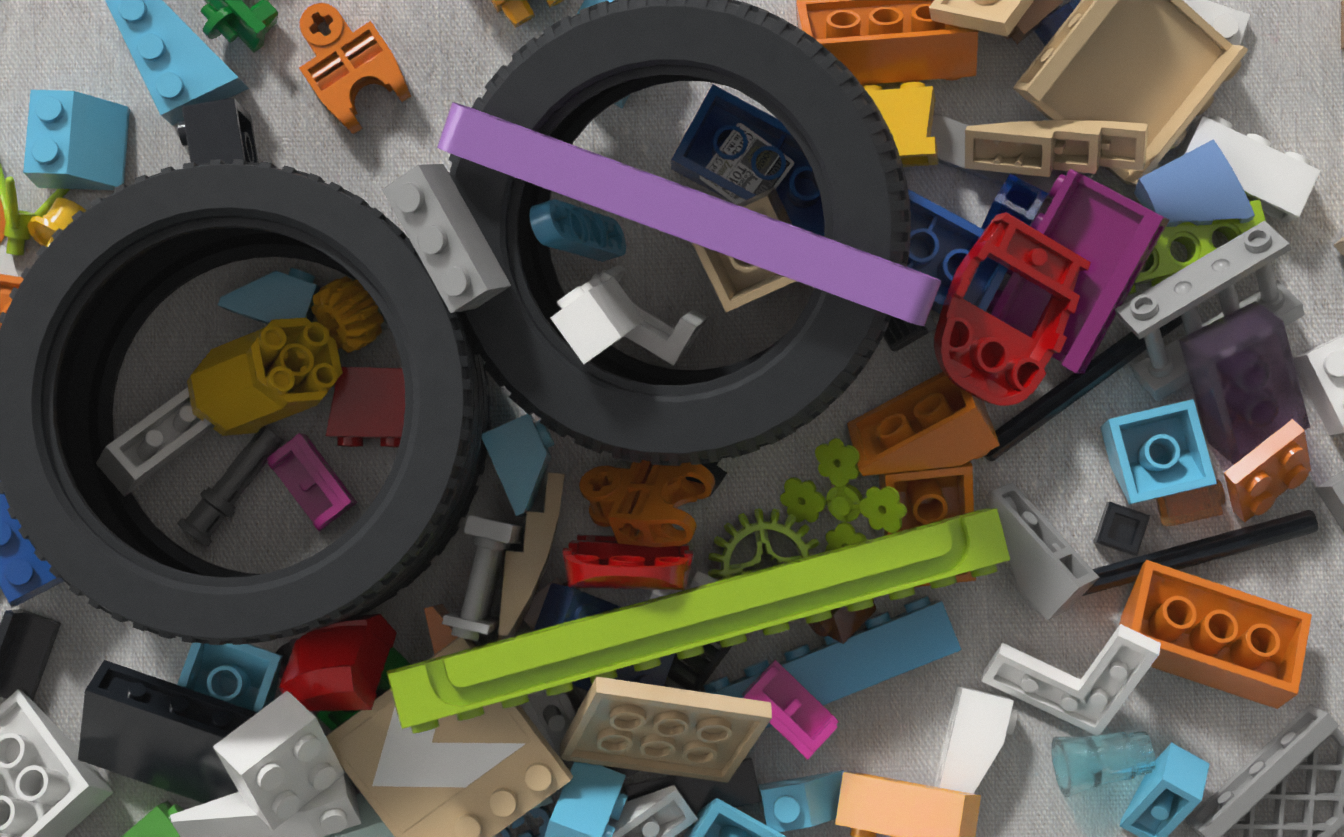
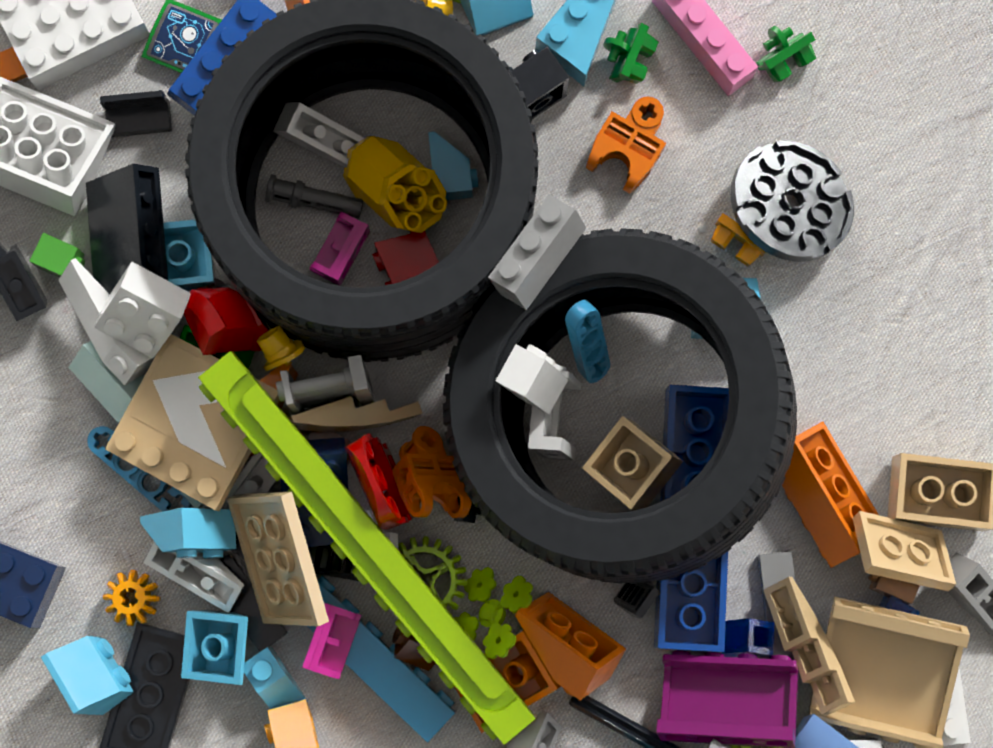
camera: 65 degrees right, 5 degrees down
(347, 313) = (459, 217): light orange gear -> none
(406, 612) = (279, 348): none -> yellow piece
(520, 459) = (417, 379): medium azure slope -> none
(689, 214) = (629, 406): medium lavender beam -> none
(740, 170) = (685, 434): sticker -> none
(910, 120) = (775, 533): yellow hips -> none
(988, 354) = (640, 664): red slope -> none

